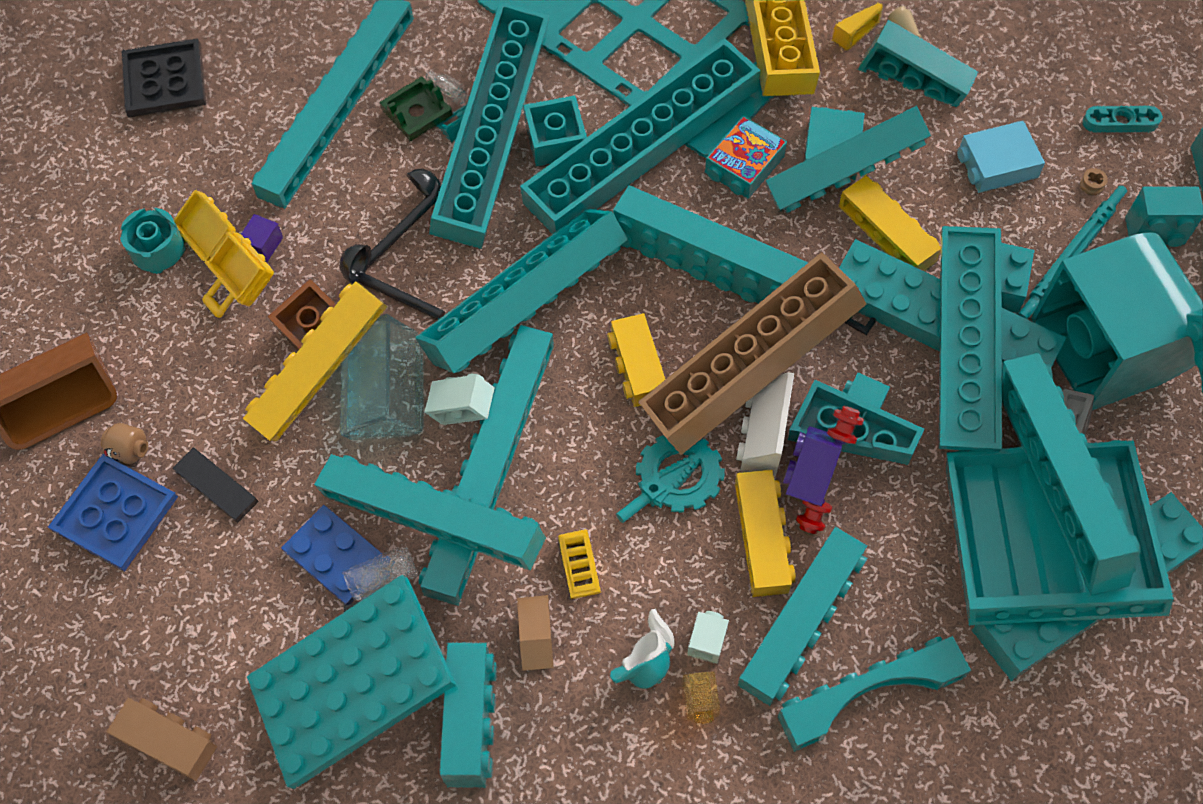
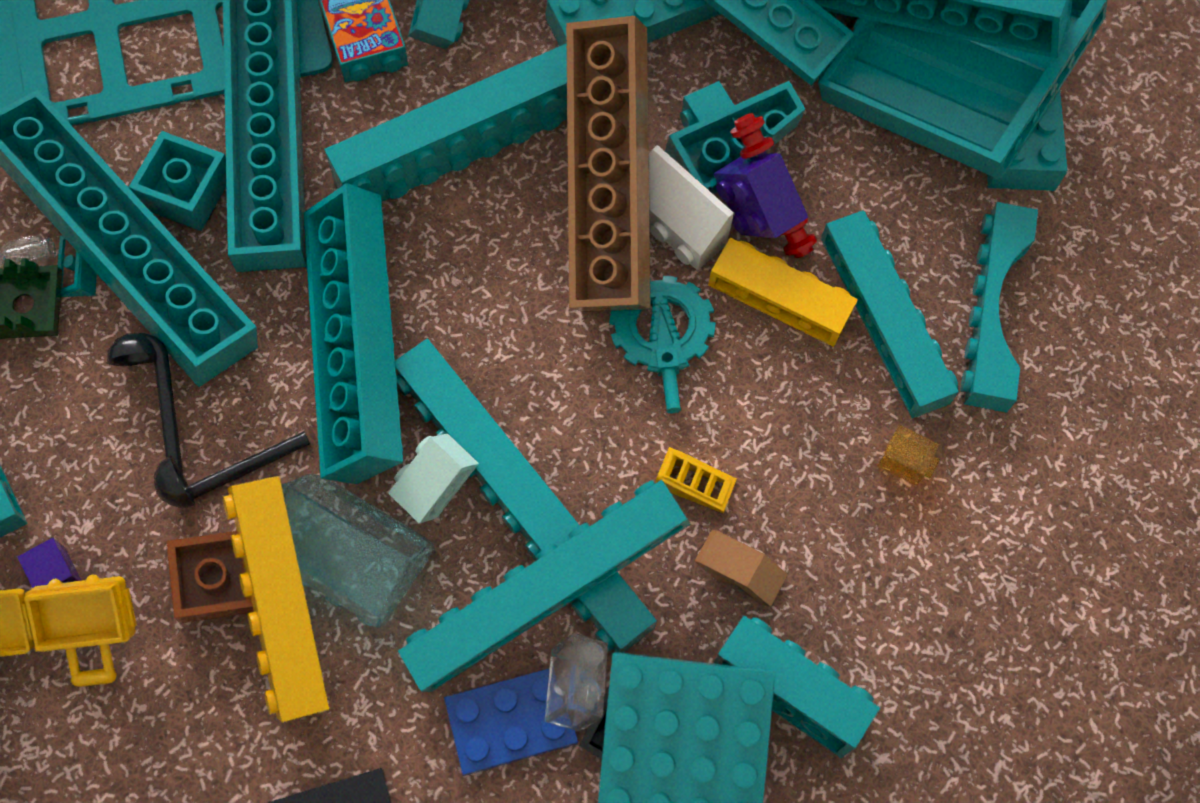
camera: 60 degrees left, 5 degrees up
(636, 356) = (514, 280): yellow brick -> none
(650, 656) = (839, 477): hair -> none
(708, 636) = (853, 409): light aqua brick -> none

